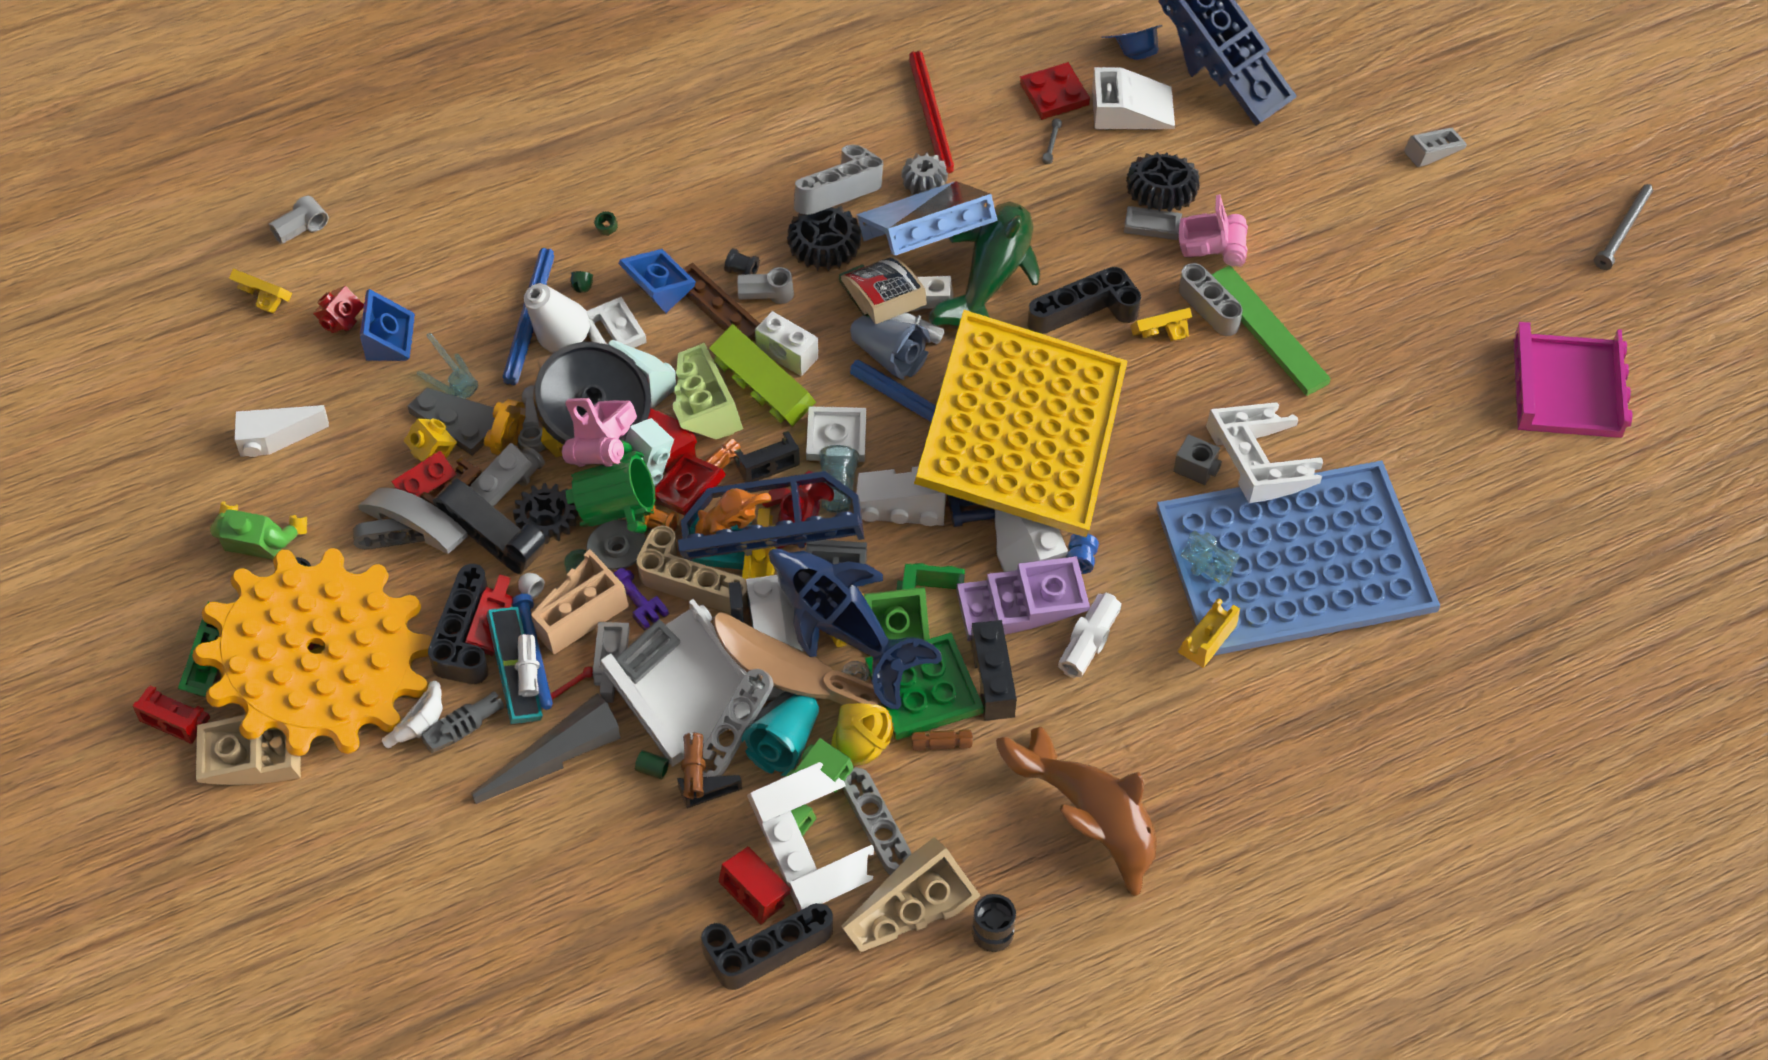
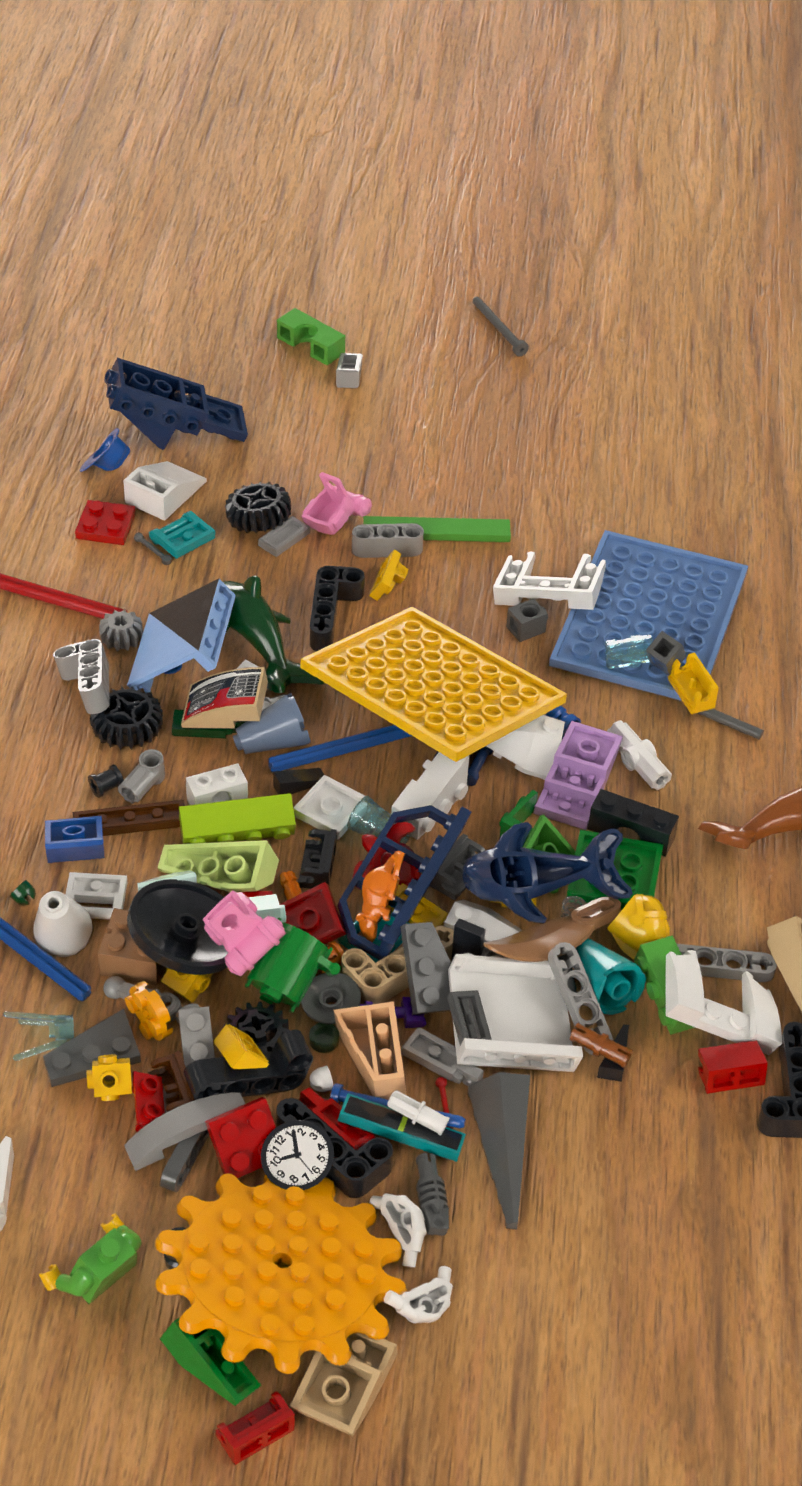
camera: 60 degrees left, 10 degrees down
(348, 768) = (426, 1301): none -> white piece
(424, 561) = (240, 1136): none -> red plate
(429, 603) = (297, 1155): none -> sticker
(499, 506) = (239, 1049): none -> yellow slope
(652, 764) = (568, 1080): dark green hinge -> none
(689, 581) = (426, 968): none -> dark grey wing
(851, 394) = (295, 780): none -> black piece
(942, 740) = (671, 885): dark orange axle -> none
(1084, 151) = (183, 534): none -> teal plate
(1206, 697) = (733, 723): none -> dark grey bar
(1224, 583) = (664, 652): none -> dark grey brick
(1449, 106) = (299, 327): none -> bright green arch
(1571, 384) = (609, 414): dark pink panel -> none

